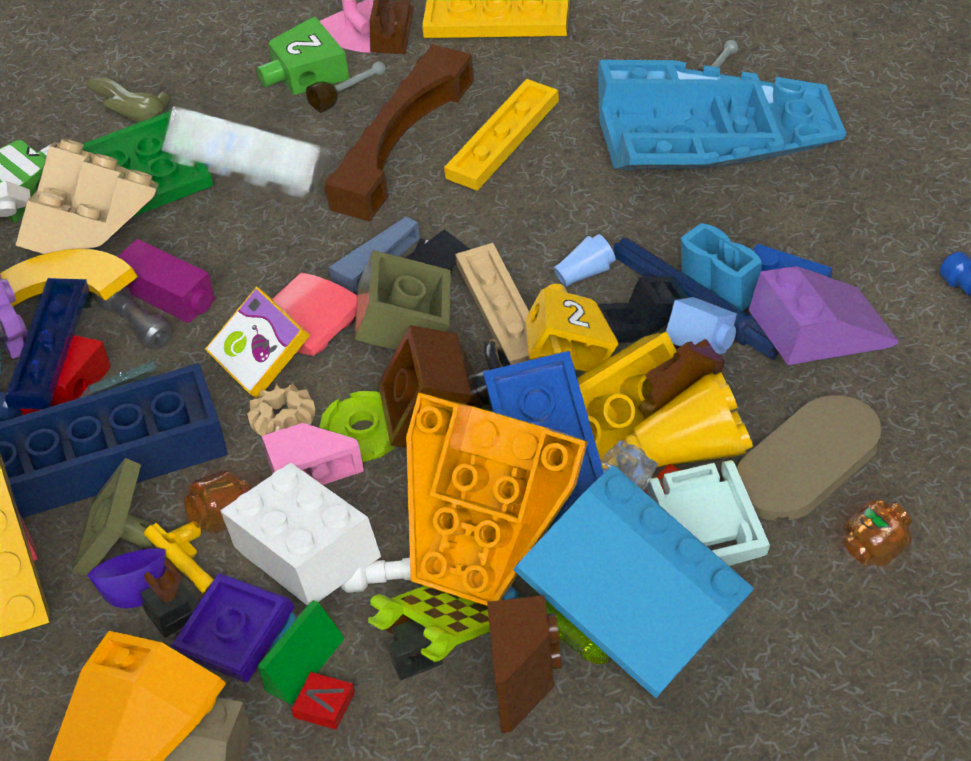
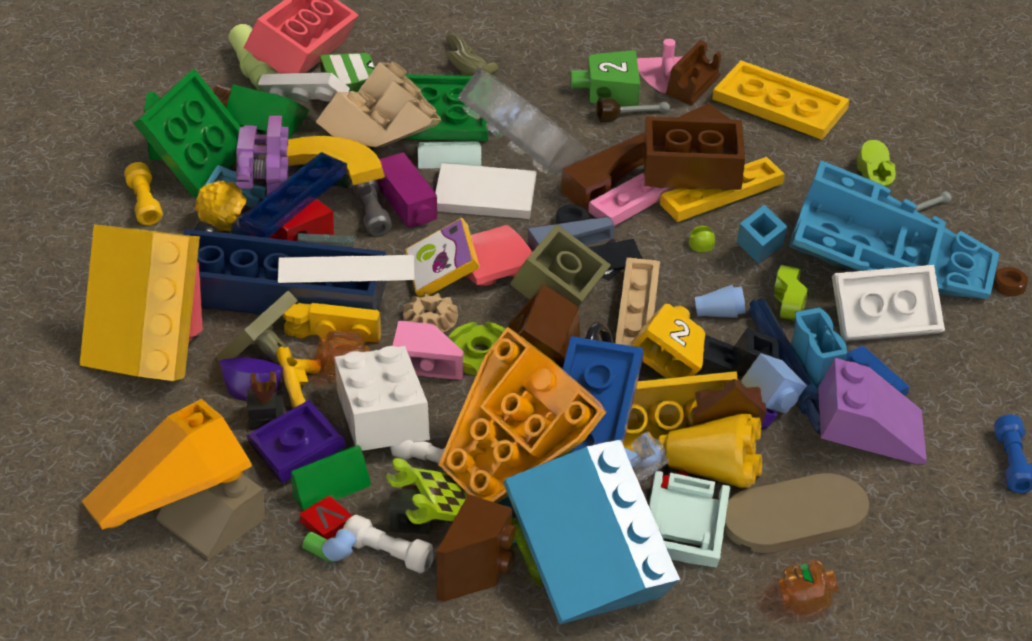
camera: 20 degrees right, 5 degrees down
(167, 403) = (346, 268): none -> white sticker
(179, 469) = (322, 318): none -> yellow hinge
(180, 219) = (462, 153): none -> light aqua slope
(249, 243) = (485, 190): none -> white tile
(354, 733) = (332, 549): none -> light blue arm
(361, 231) = (571, 213): none -> black tile
(373, 698) = (416, 554): none -> white piece
(422, 167) = (626, 200): none -> bright pink plate
(458, 107) = (693, 153): none -> reddish brown brick
(519, 199) = (702, 239): none -> lime hinge
(581, 167) = (761, 234): none -> dark azure brick
(638, 38) = (875, 163): none -> lime piece
(649, 219) = (790, 292): none -> lime piece
(756, 186) = (888, 303): none -> white tile
(854, 110) = (1010, 281): none -> reddish brown tile

